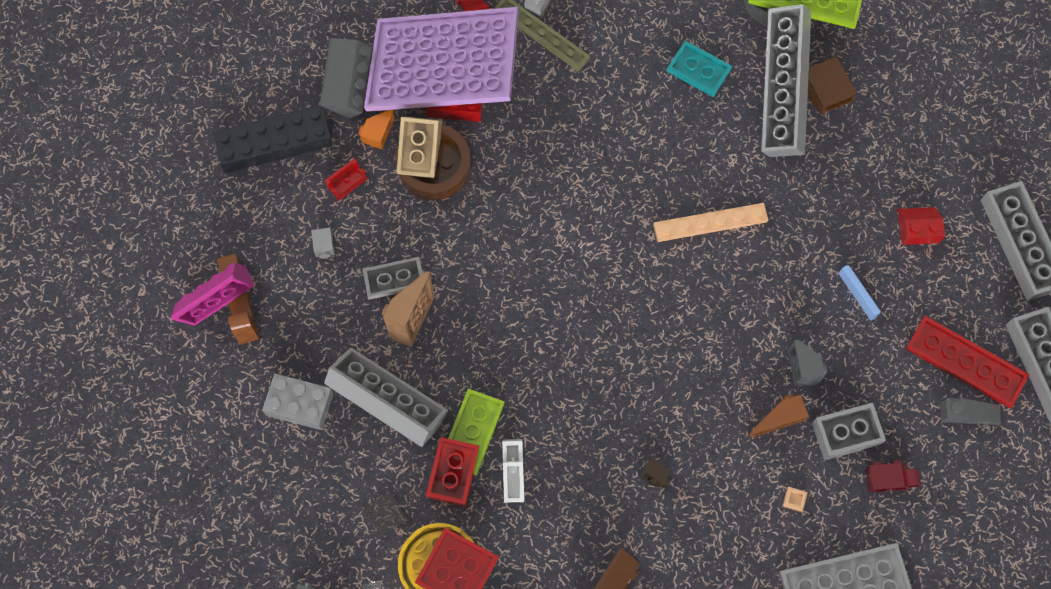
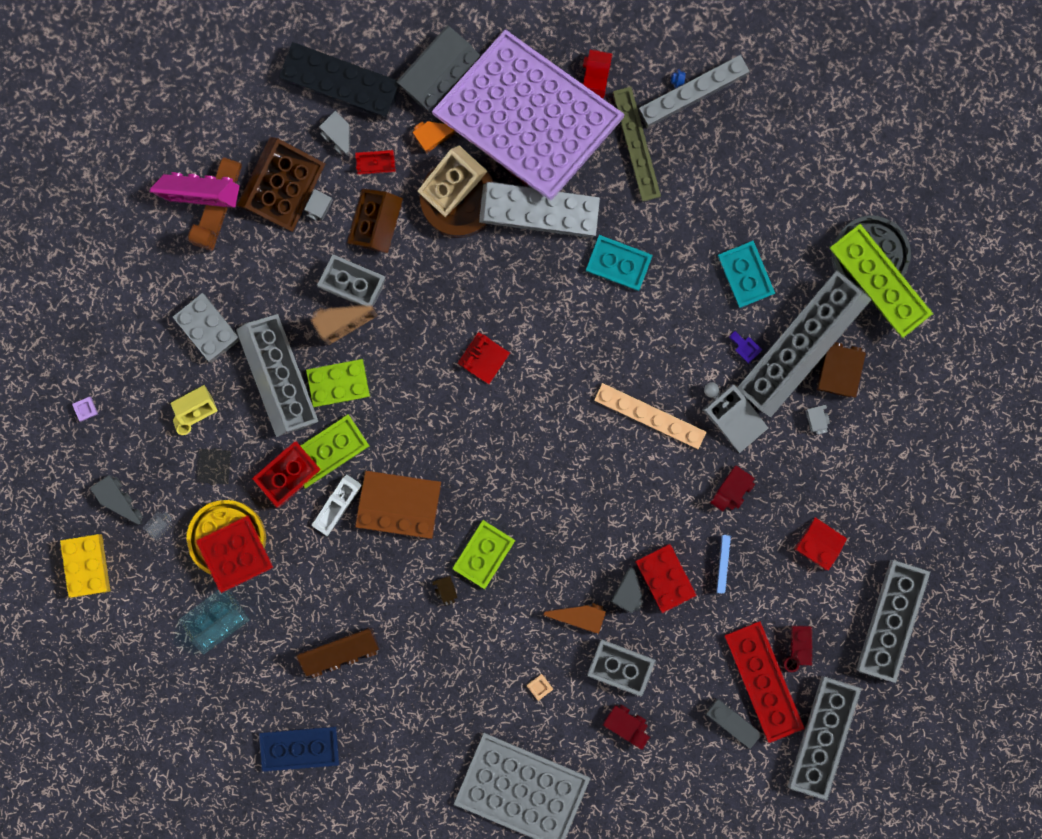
camera: 40 degrees right, 15 degrees up
(238, 544) = (85, 409): none -> lavender plate
(280, 247) = (281, 184): none -> reddish brown slope
(298, 177) = (337, 131): none -> light grey slope
(332, 476) = (192, 409): none -> light yellow hinge
(378, 223) = (375, 220): none -> reddish brown slope
(441, 370) = (338, 383): none -> lime plate
(504, 124) = (533, 211): none -> light grey brick
(545, 269) = (483, 358): none -> red hinge
(565, 433) = (398, 504): none -> dark orange slope
(596, 125) = (619, 263): none -> teal plate
(665, 423) = (483, 554): none -> lime plate
(743, 120) = (746, 348): none -> dark purple plate
(776, 177) = (736, 418): none -> light grey slope
(820, 229) = (733, 489): none -> dark red hinge
(826, 334) = (665, 578): none -> red brick
(839, 134) = (818, 419): none -> light grey brick
(972, 313) = (800, 647): none -> dark red hinge

